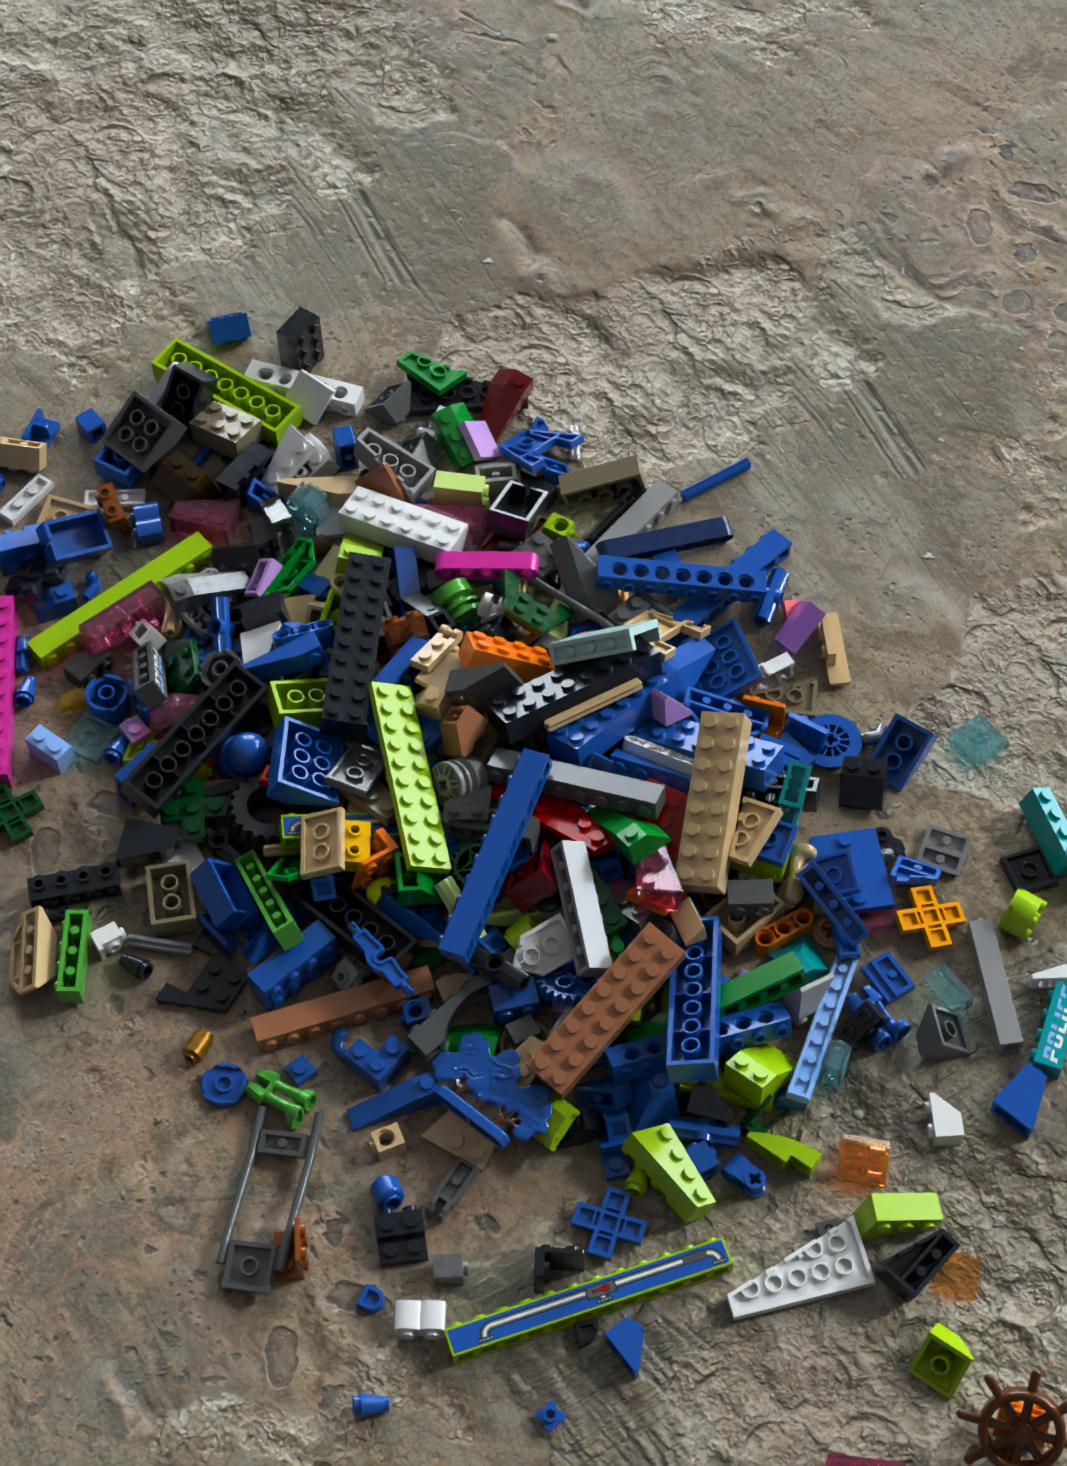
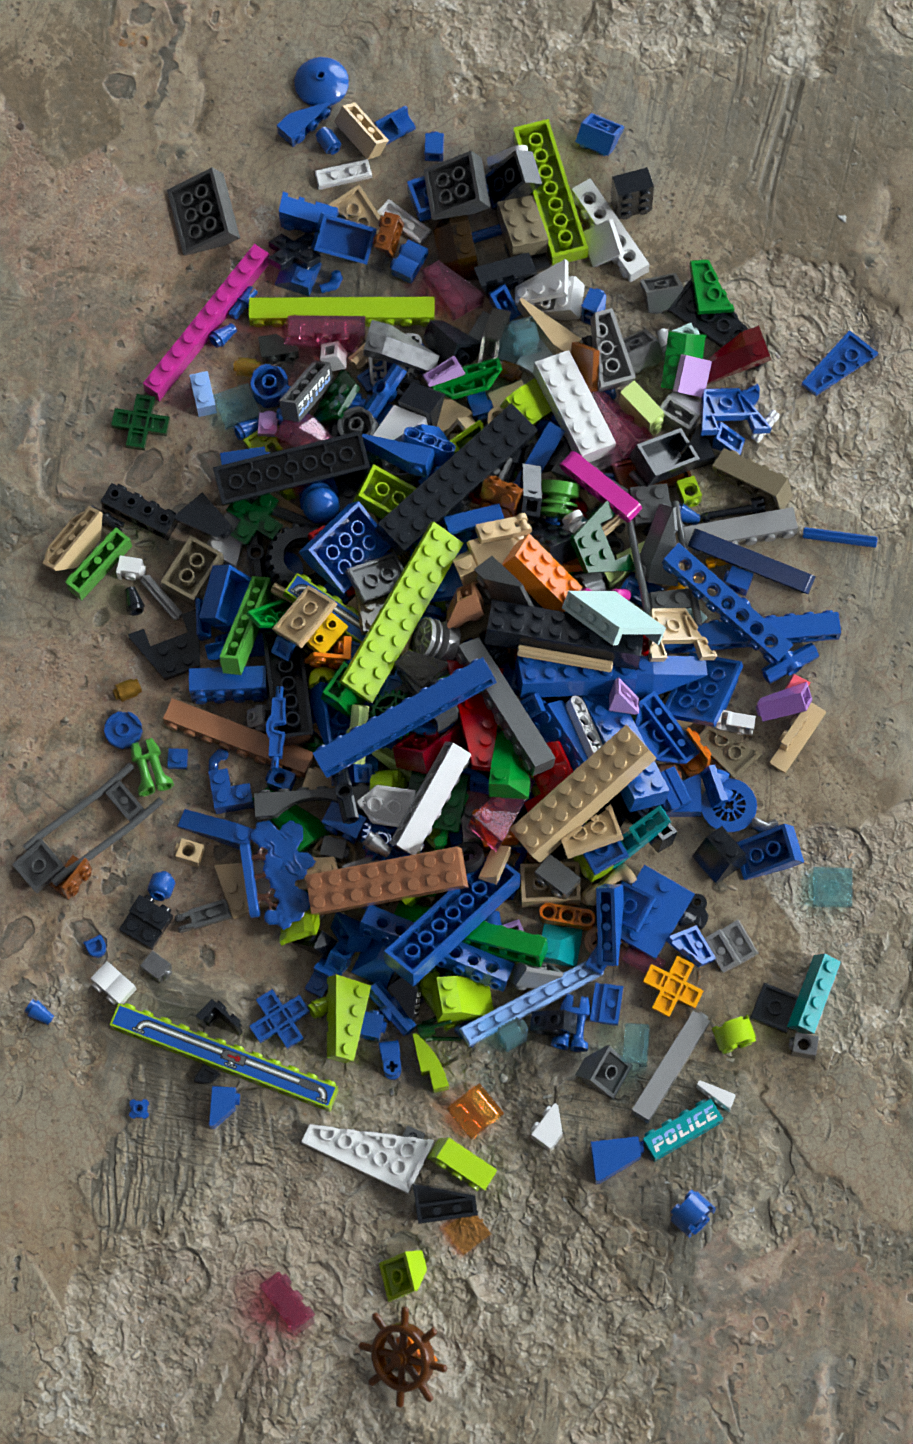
camera: 40 degrees right, 15 degrees up
(565, 986) = (376, 844): none -> flat silver cone
(589, 356) = (841, 361): none -> blue wing

